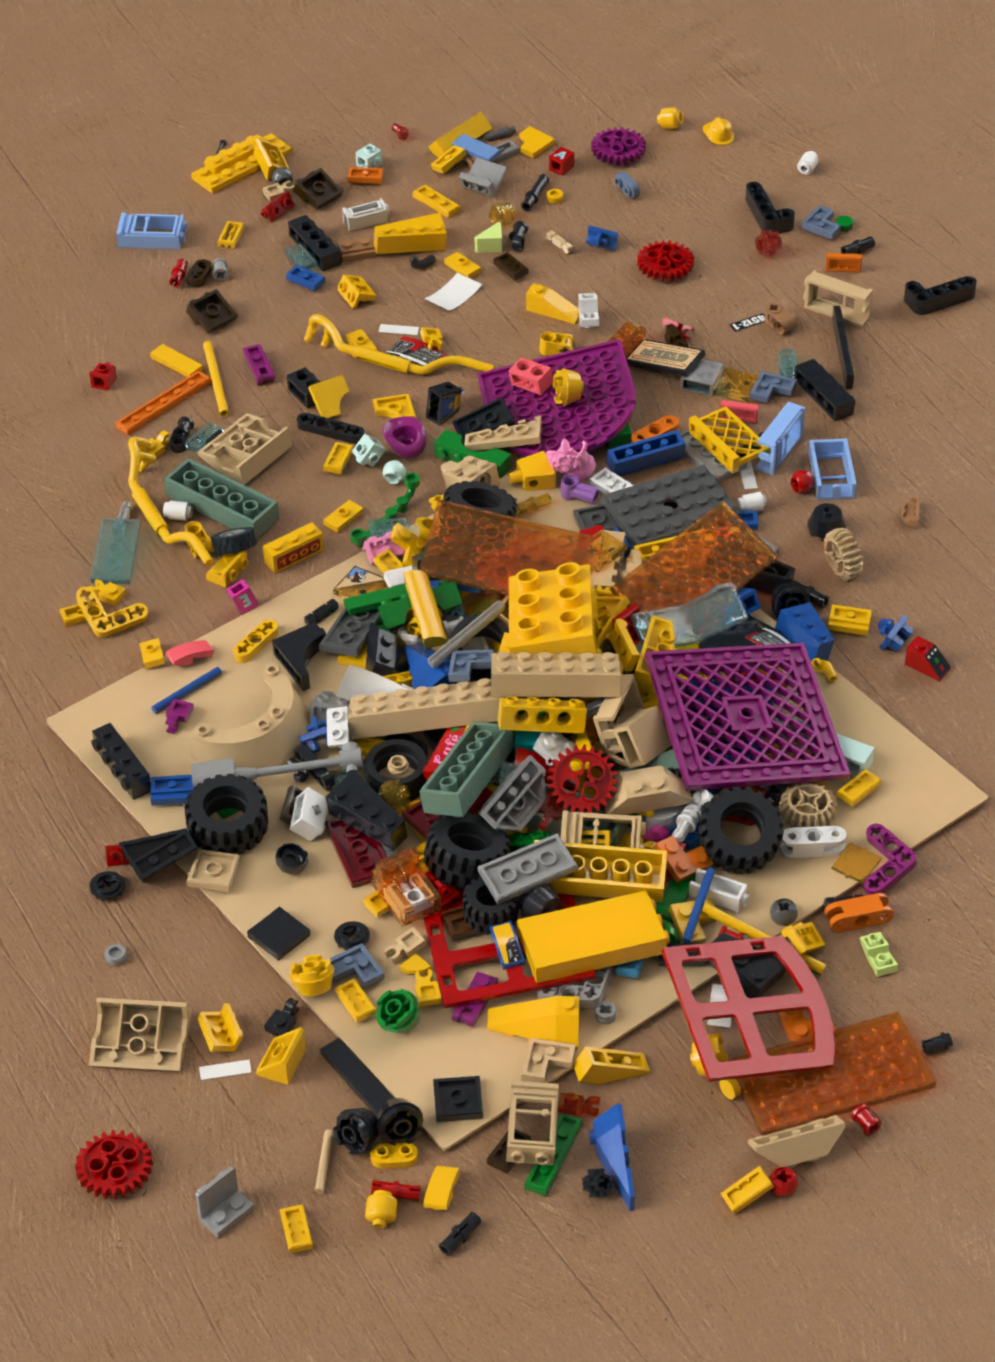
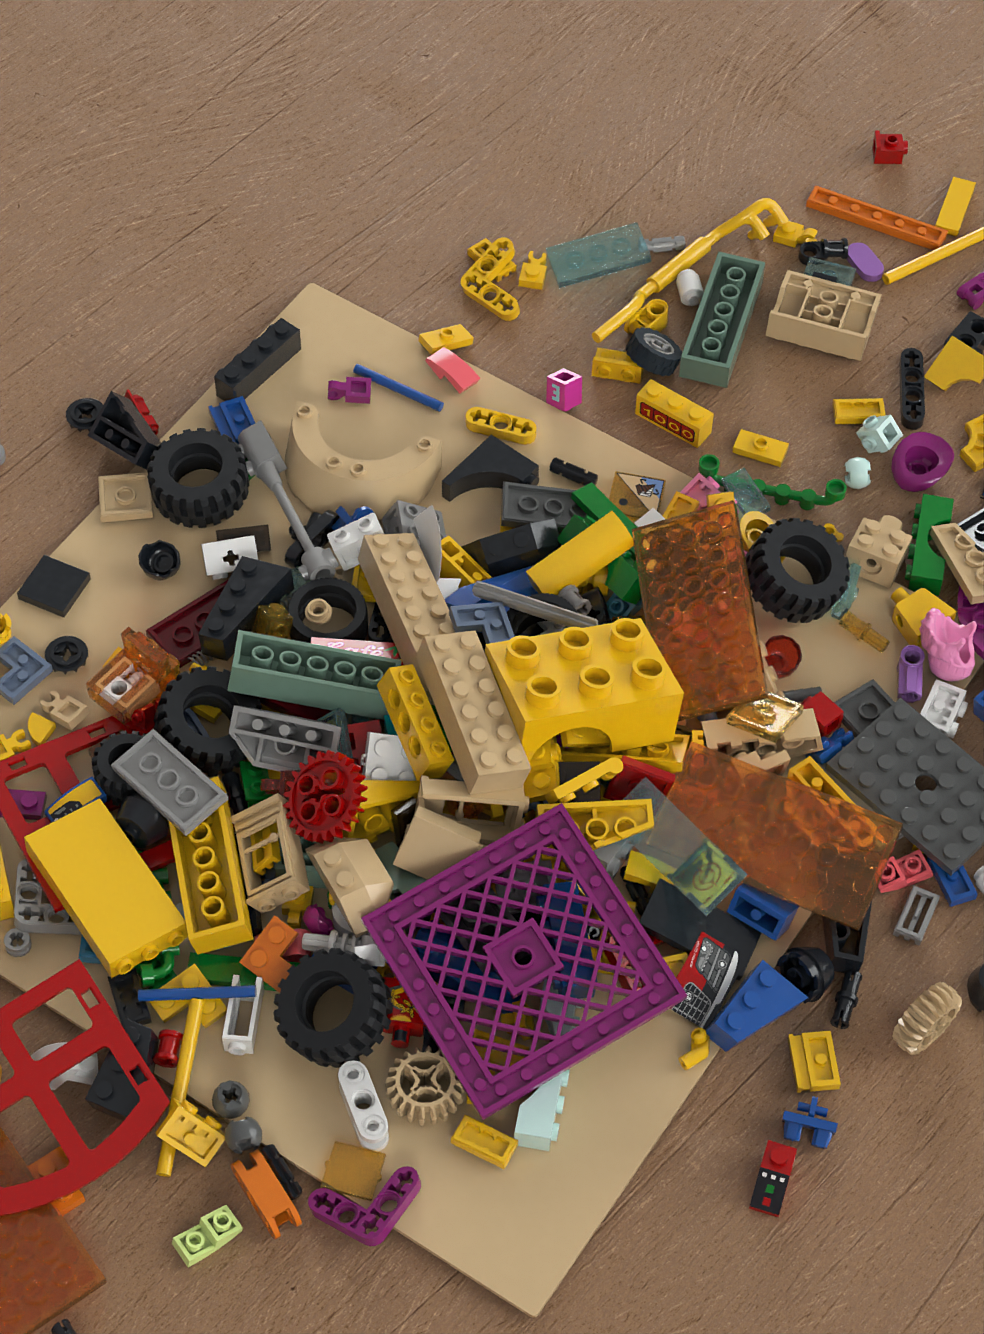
camera: 70 degrees right, 10 degrees up
(202, 418) = (865, 262): none -> medium lavender tile
(814, 909) = (243, 1135): none -> dark grey piece

